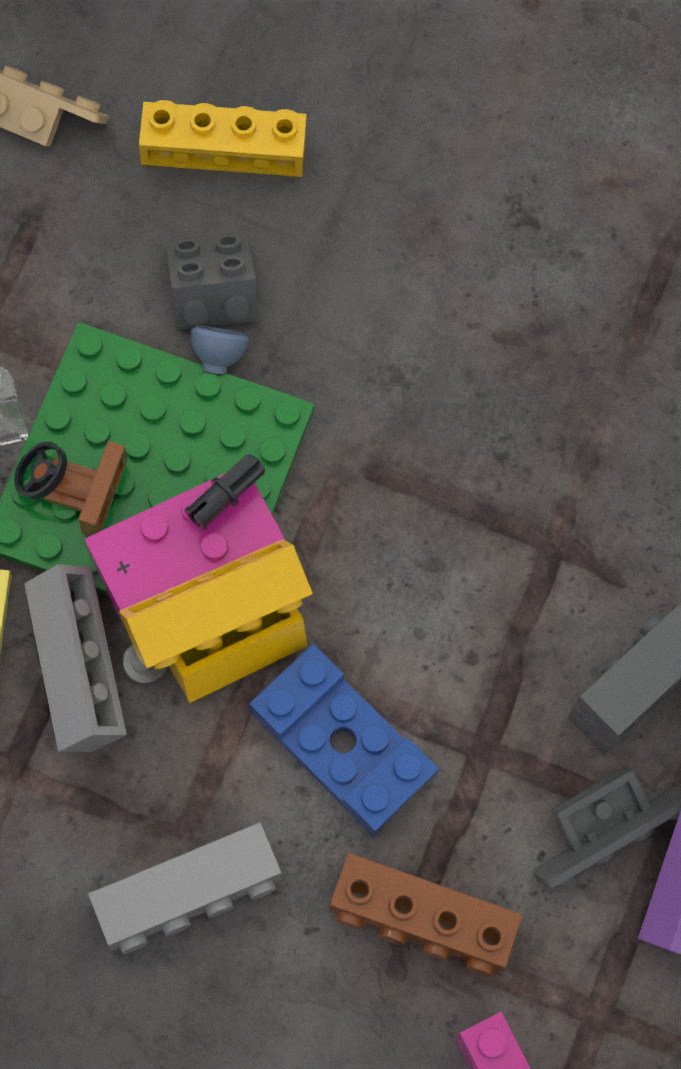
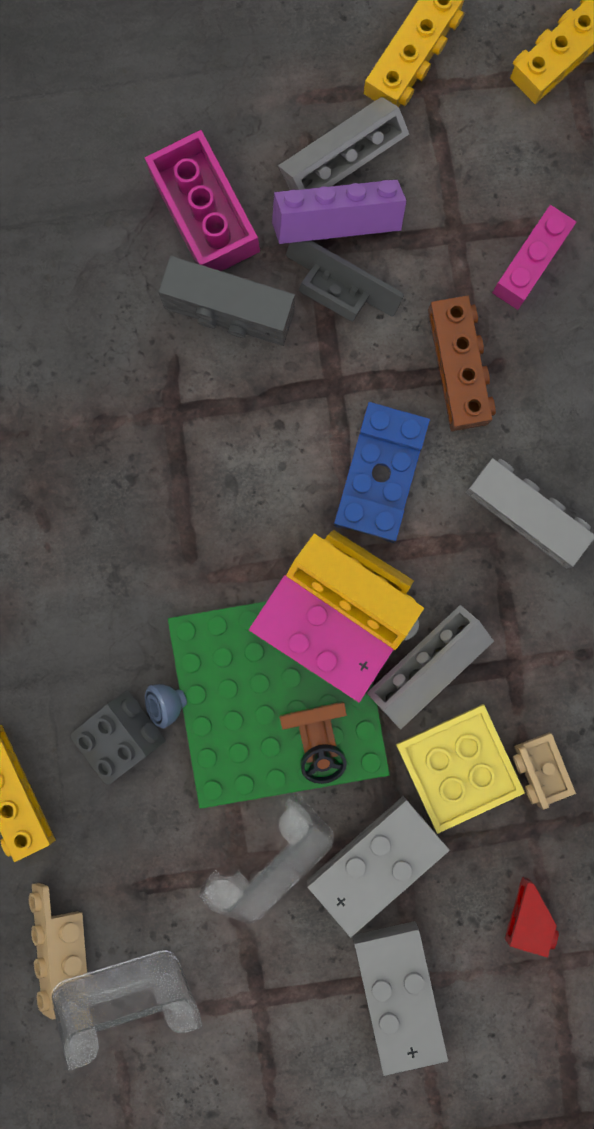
camera: 115 degrees left, 15 degrees up
(225, 491) = (279, 627): black axle -> none

